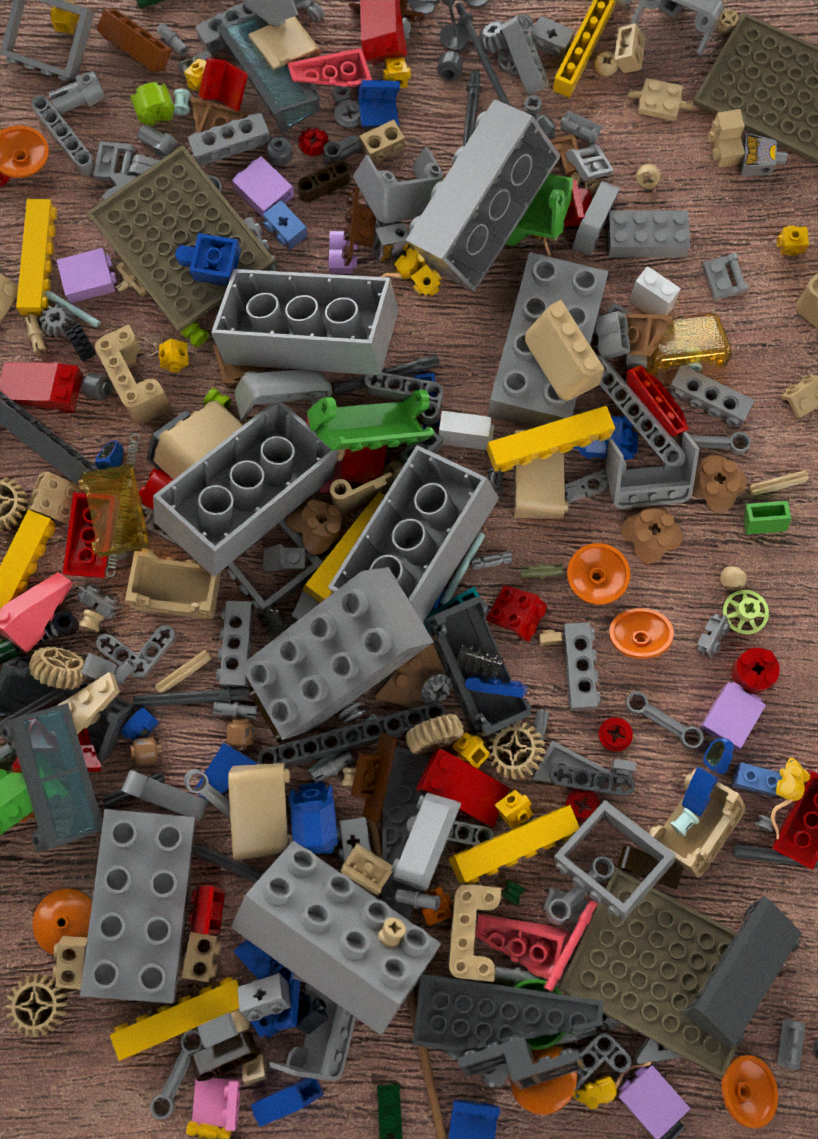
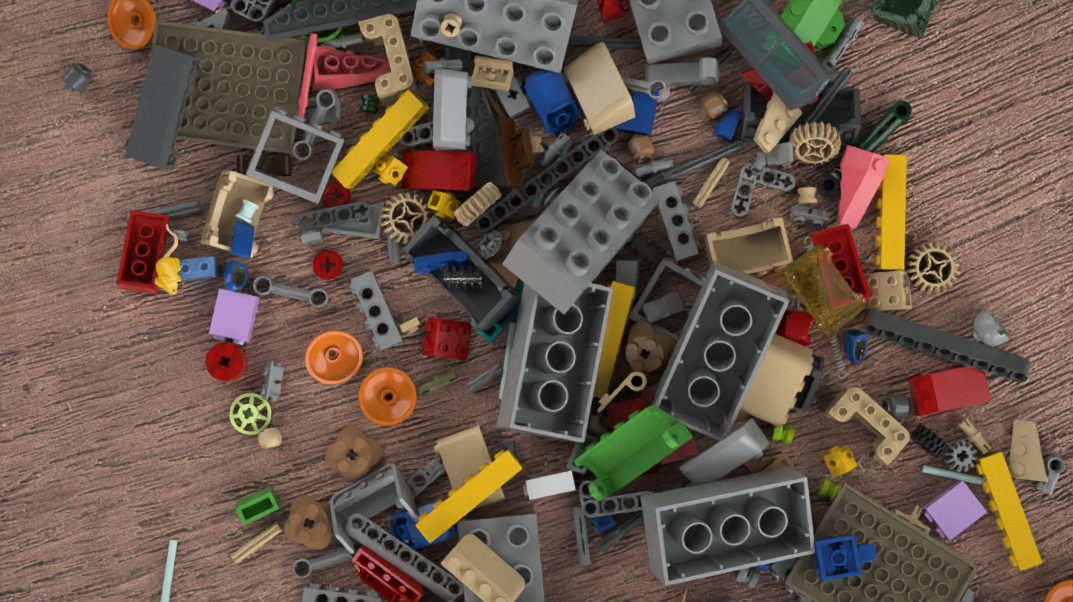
camera: 165 degrees right, 10 degrees up
(452, 375) = (584, 559): none -> light grey pin
(791, 1044) = (109, 69): light grey hinge -> none

